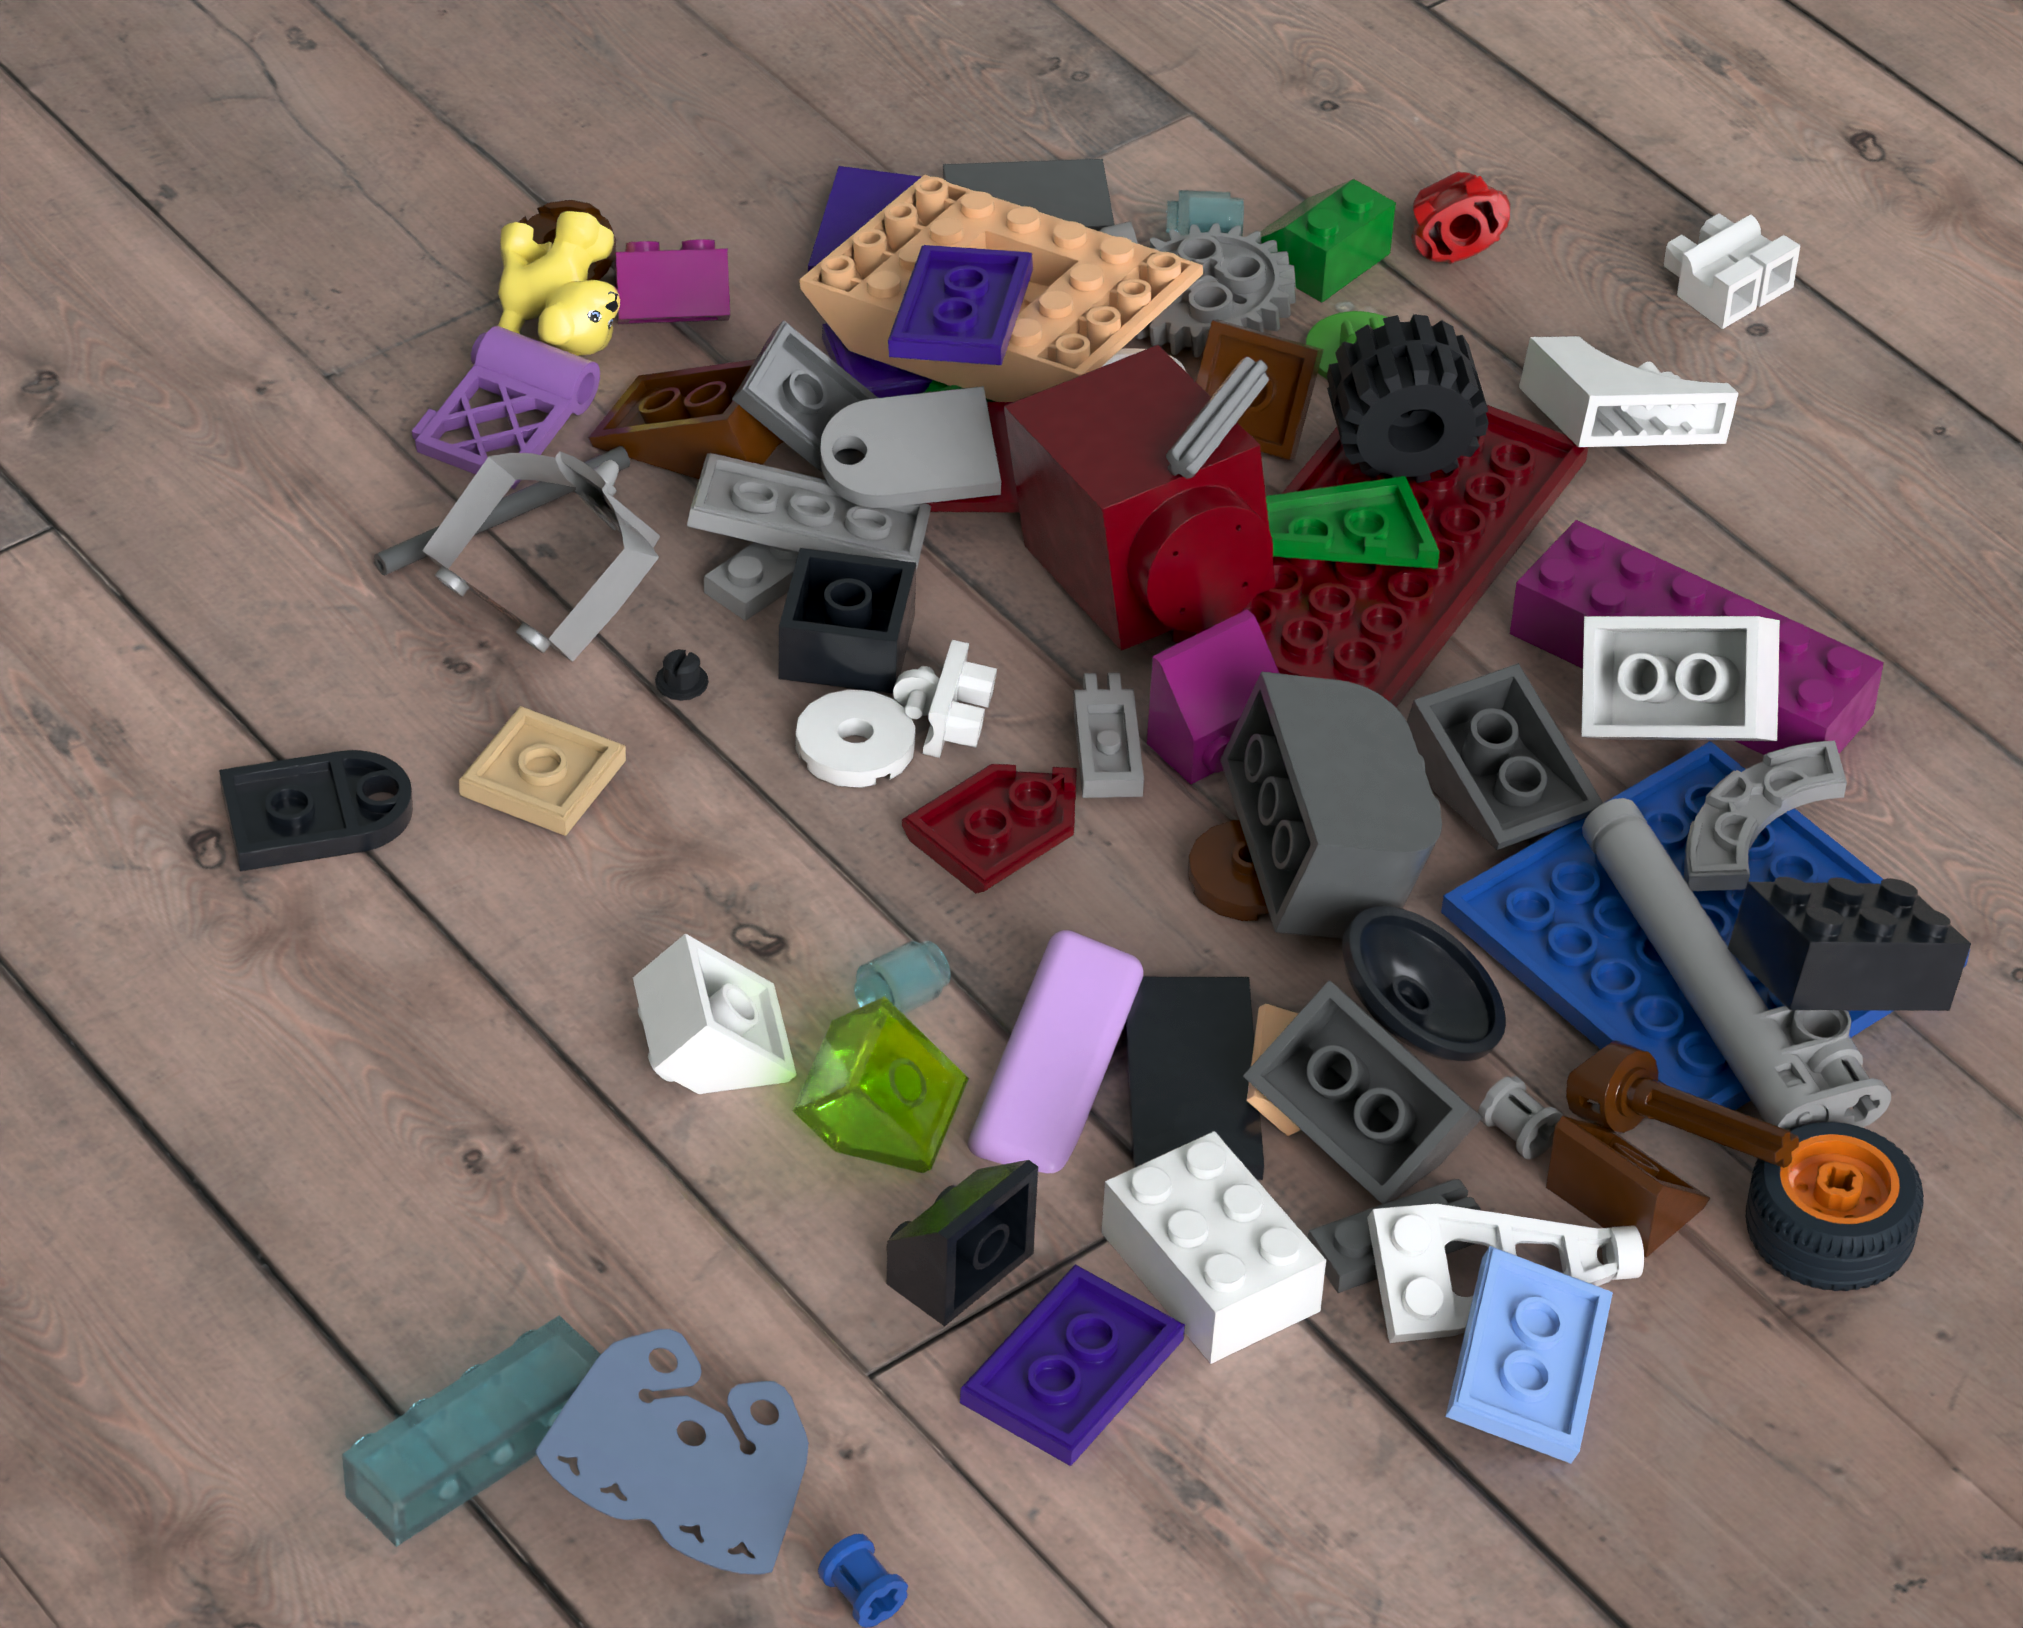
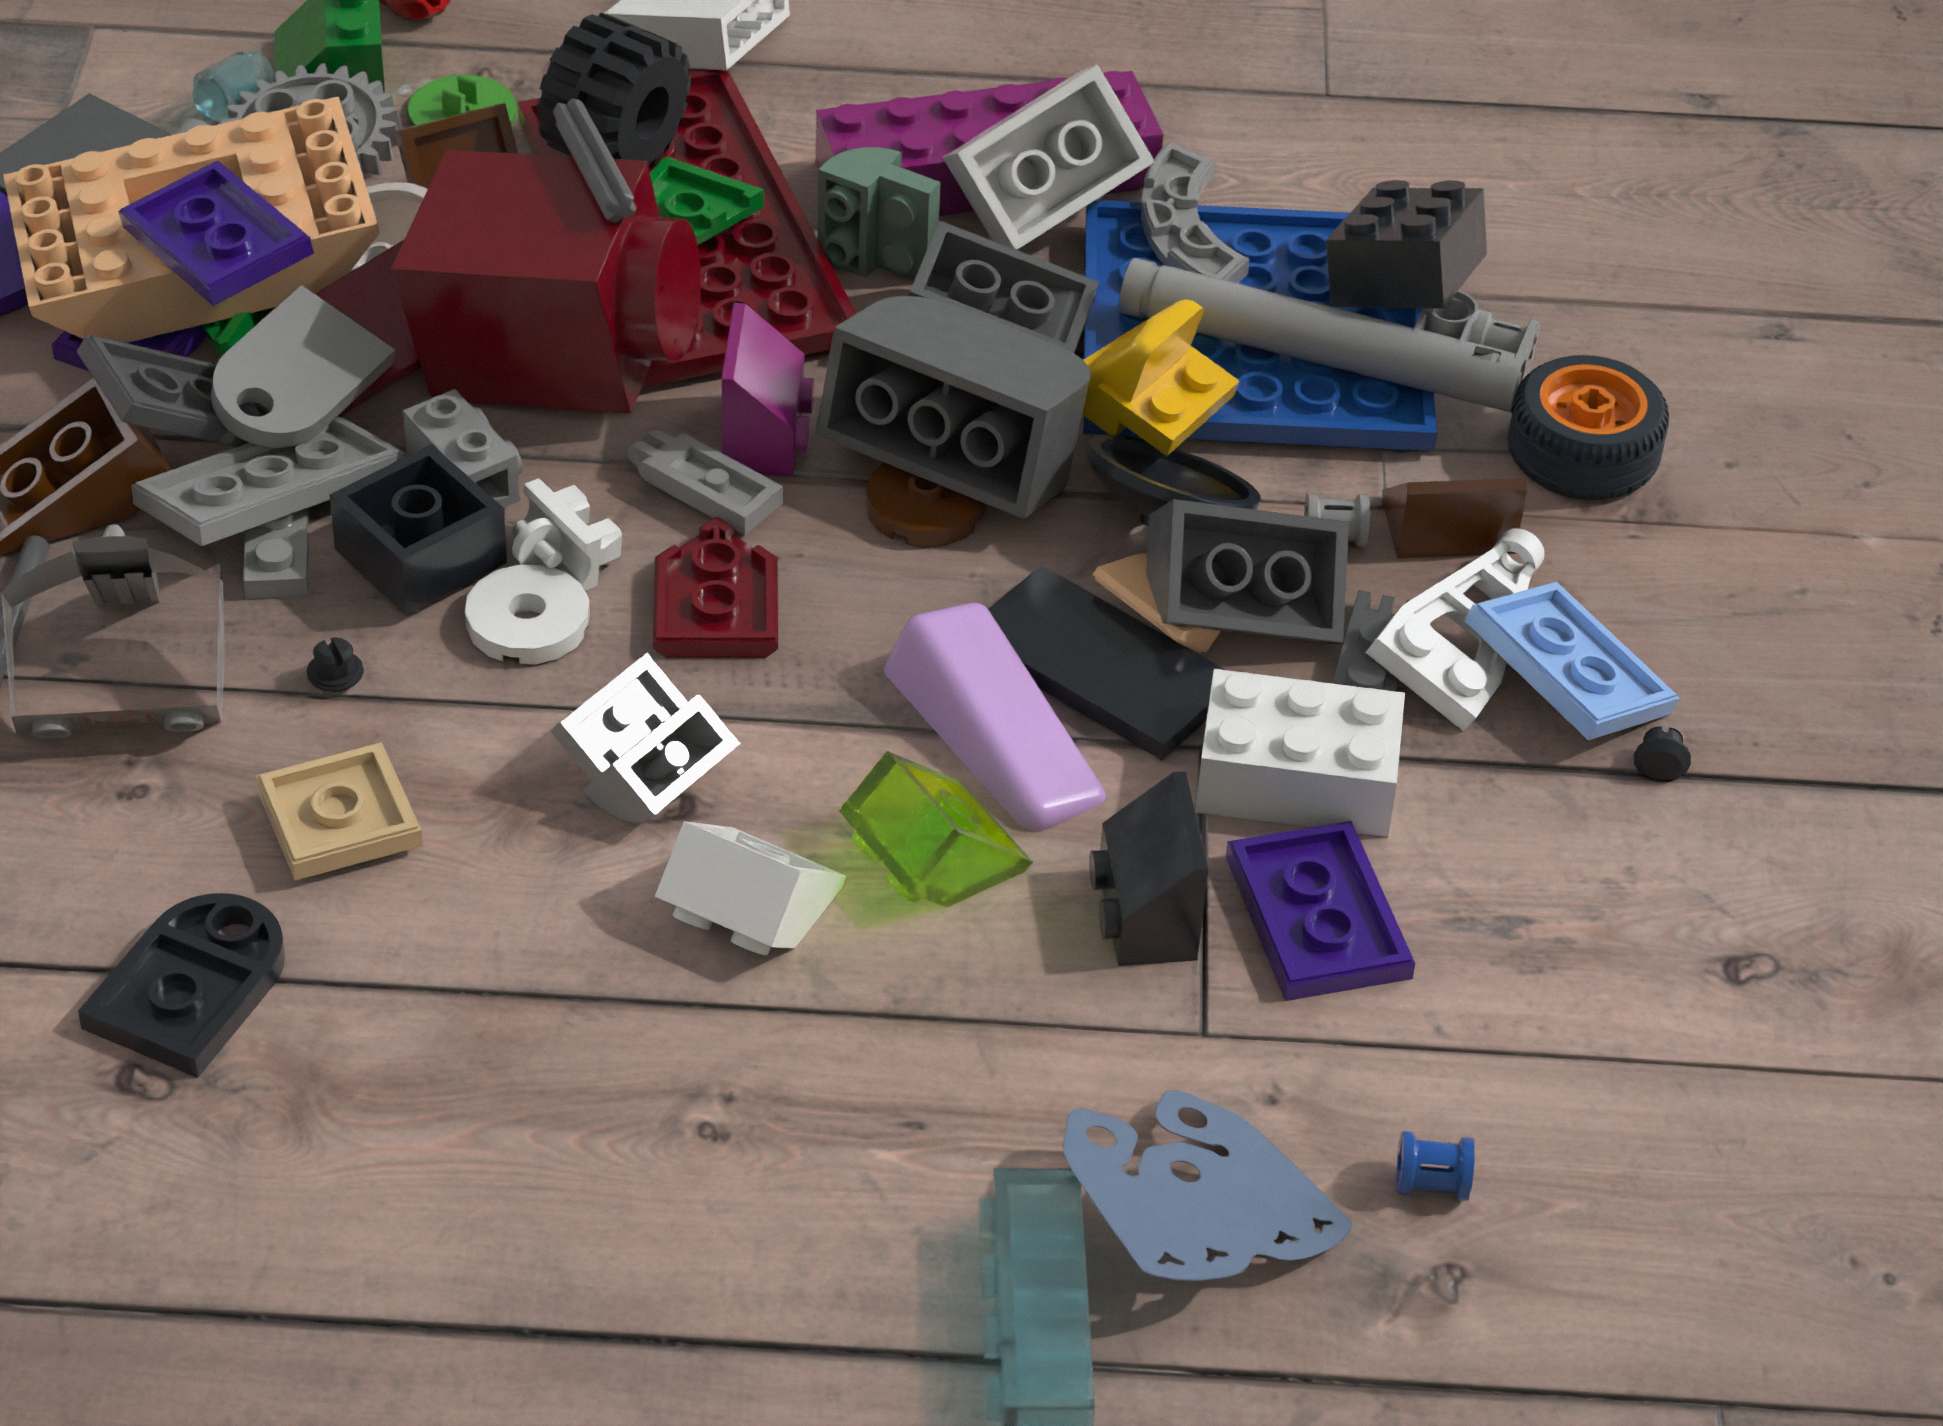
camera: 50 degrees left, 0 degrees up
(779, 871) = (642, 742): none -> brick
(904, 975) = (829, 748): clear light blue brick -> none
(957, 591) = (467, 441): none -> light grey brick
(1499, 616) = (875, 212): none -> sand green brick
(1499, 1477) = (1662, 754): none -> black piece
(1506, 904) = (1157, 380): none -> yellow piece
(1629, 1090) = (1372, 451): reddish brown piece -> none

